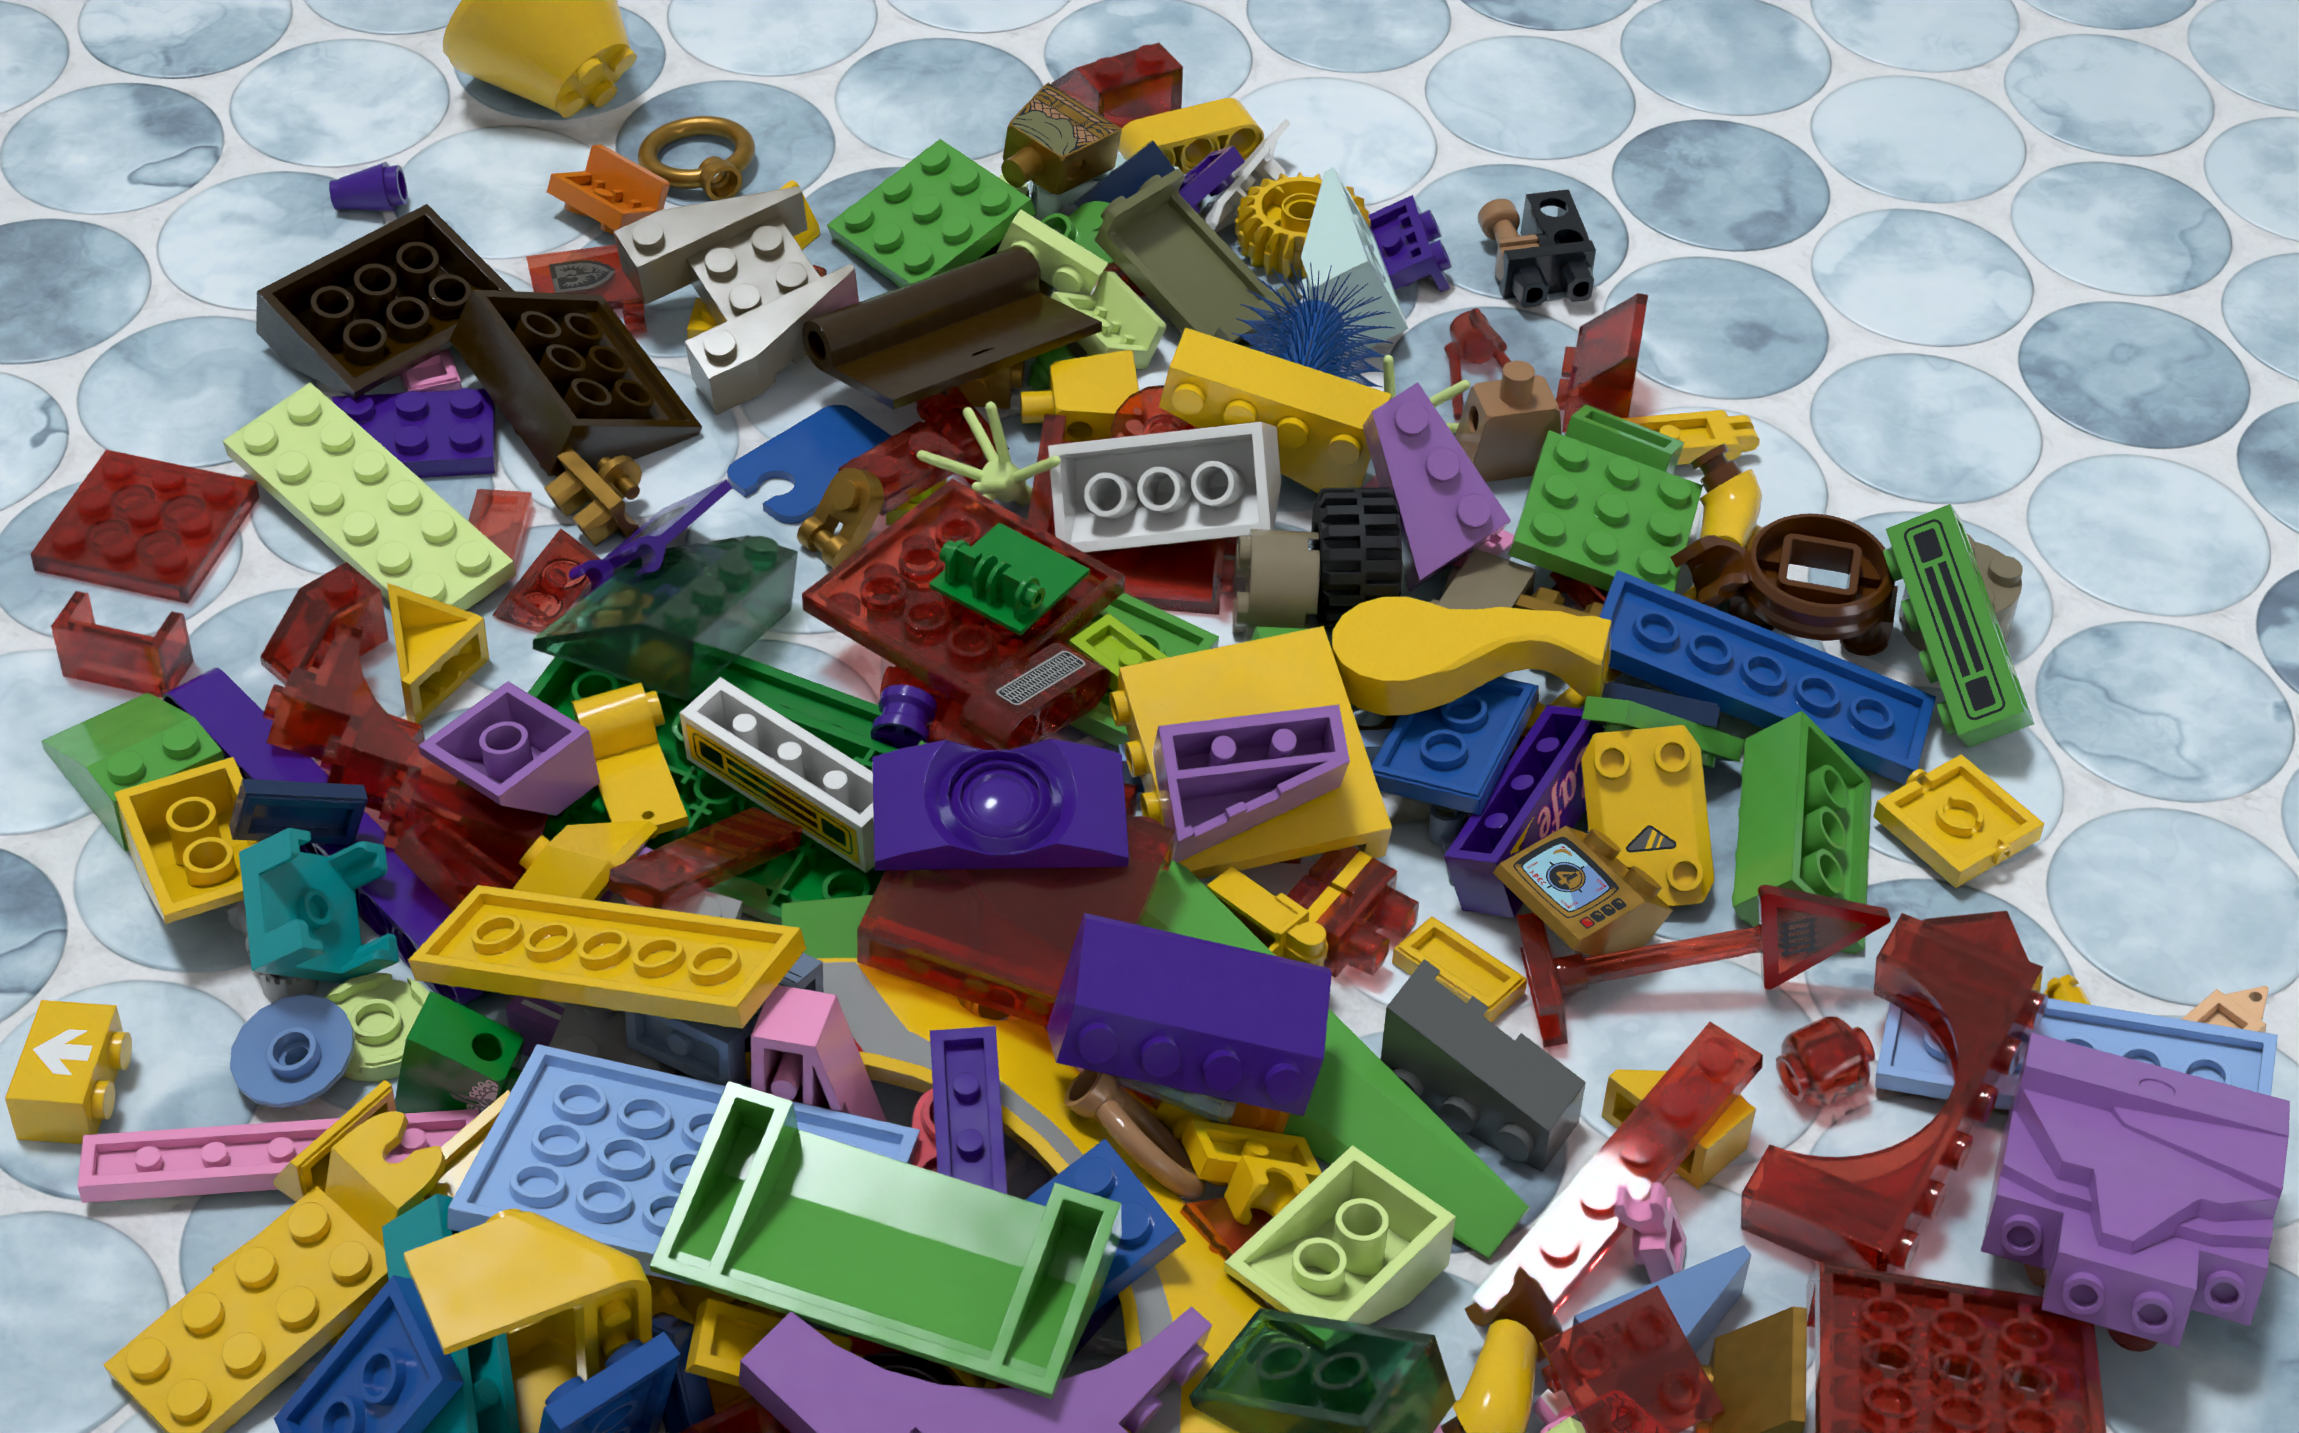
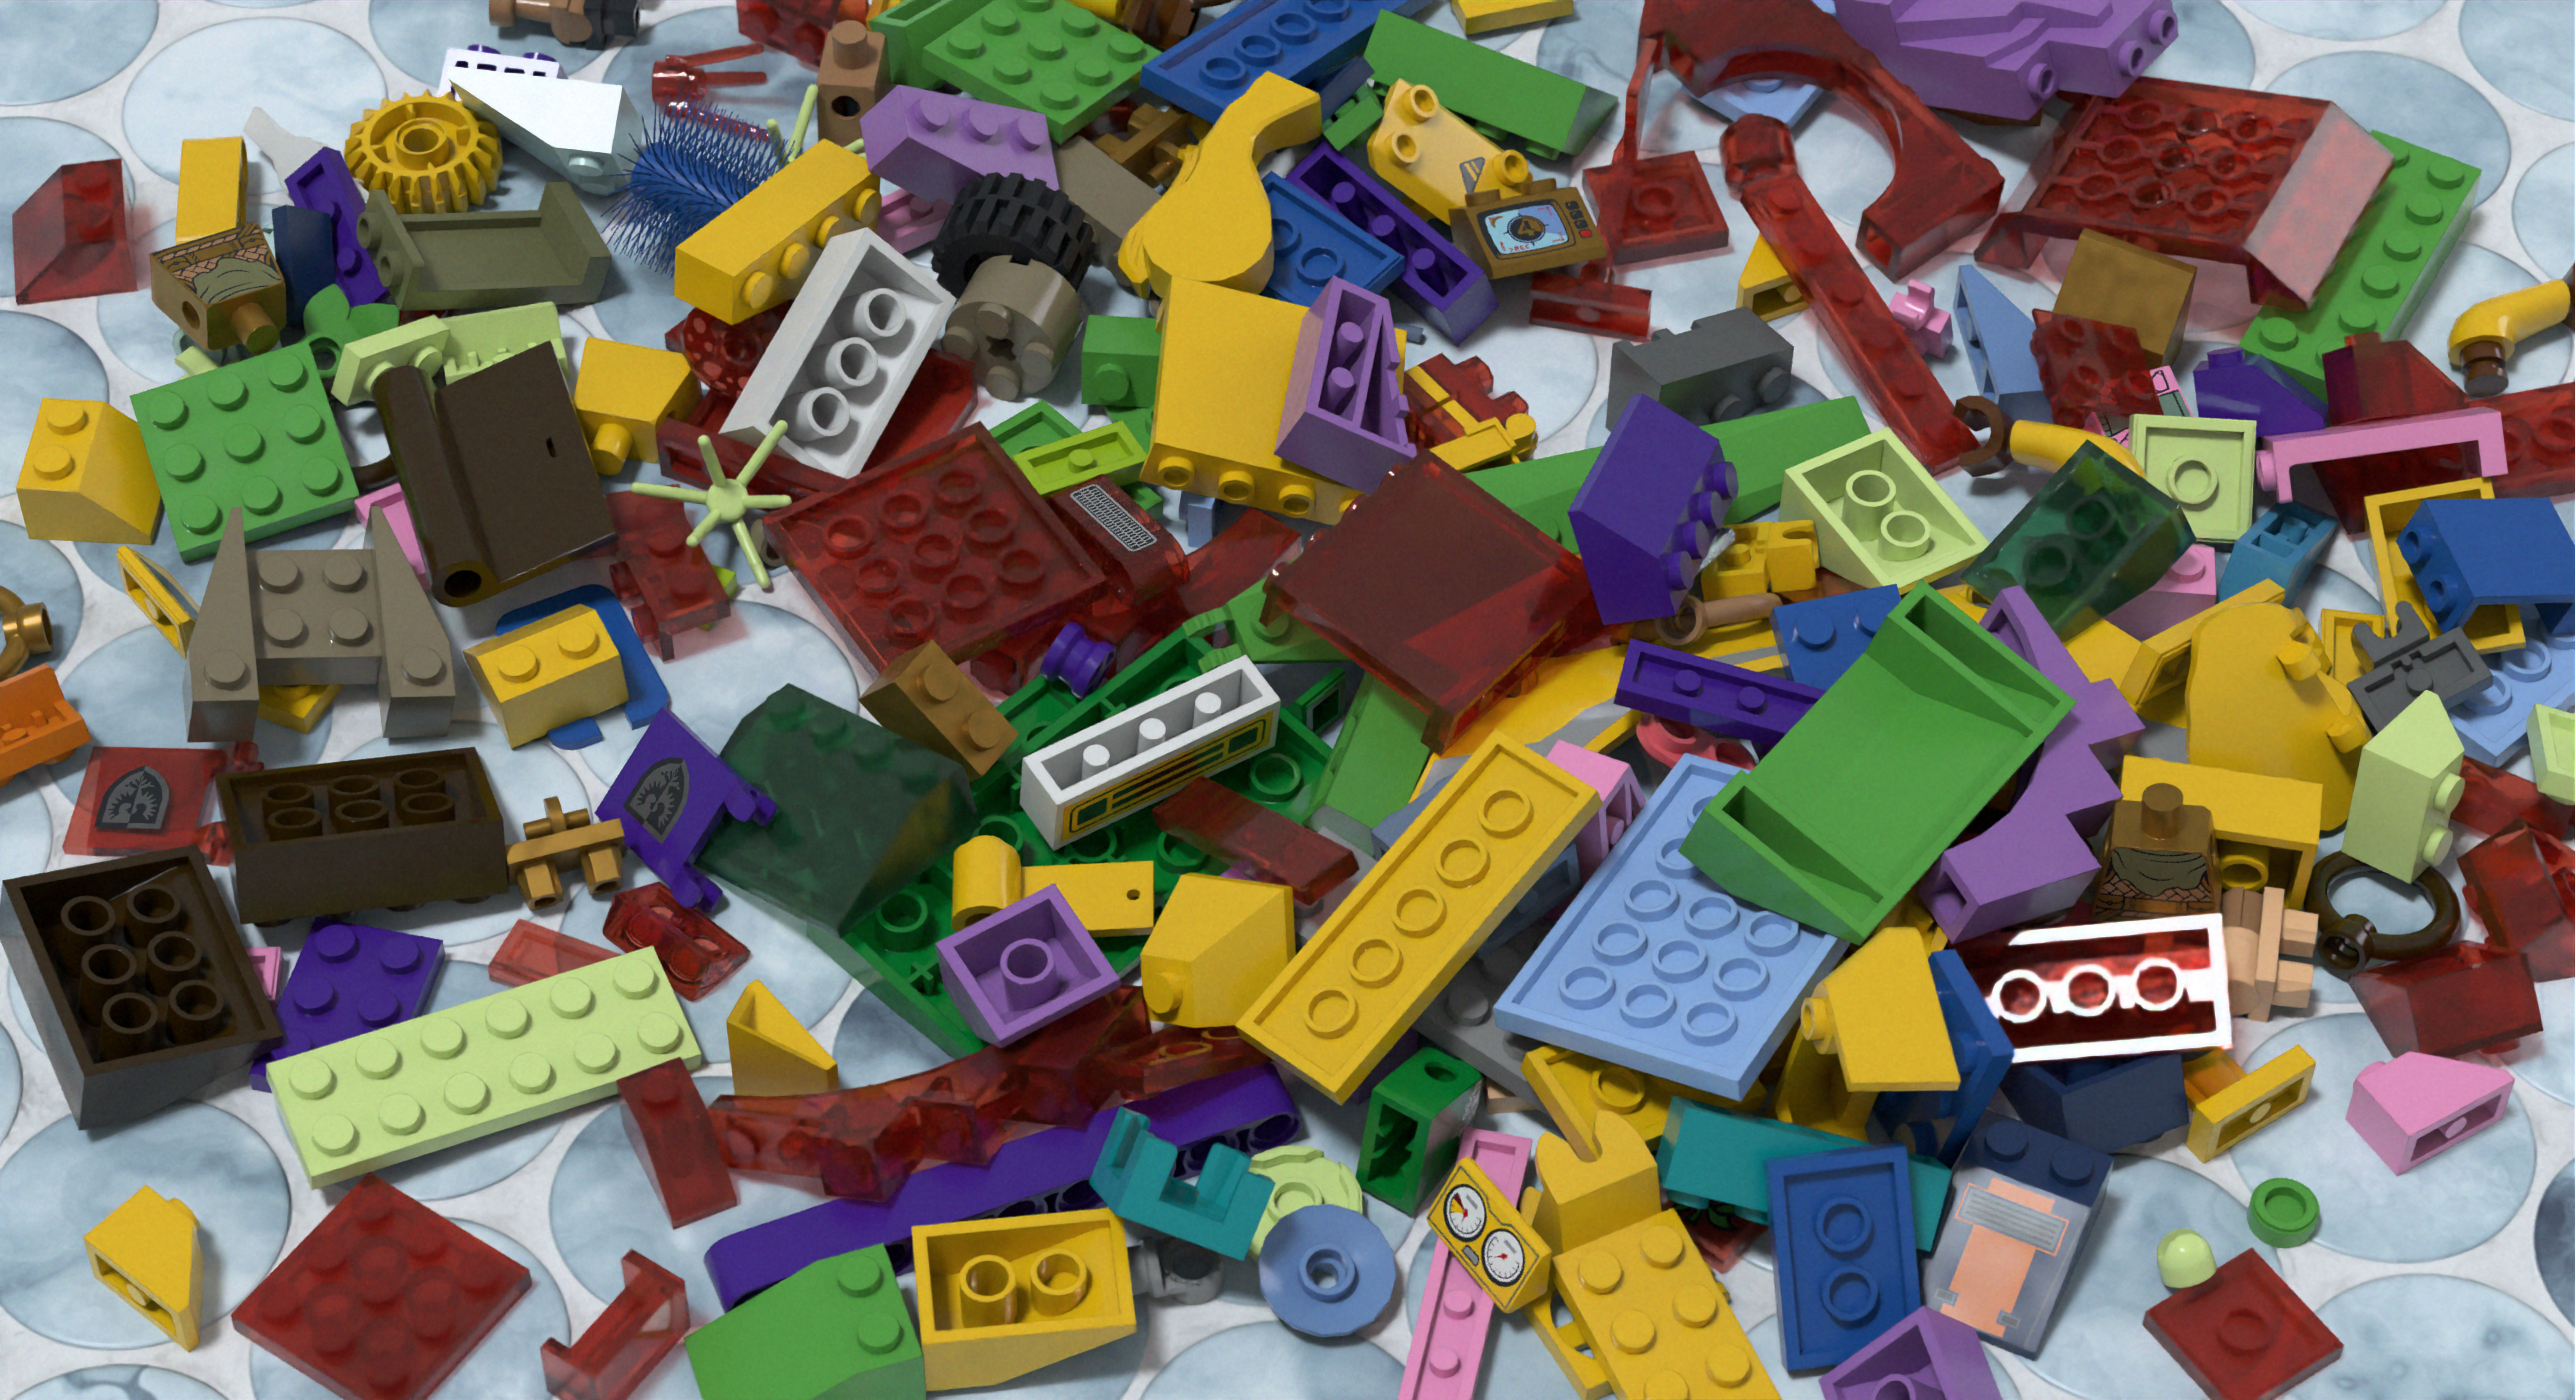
camera: 70 degrees left, 5 degrees up
(137, 400) = (153, 1262): none -> yellow slope
(324, 809) = (1049, 1168): dark blue tile -> none
(774, 632) = (939, 708): none -> pearl gold brick
(776, 432) = (549, 673): none -> yellow slope
(852, 499) = (711, 624): pearl gold plate -> none
(870, 145) = (88, 476): none -> yellow slope
(999, 807) = (1362, 562): dark purple slope -> none
(1006, 577) = (959, 503): green hinge -> none
(1462, 966) = (1547, 363): yellow tile -> none
(1724, 992) = (1666, 210): none -> clear red plate

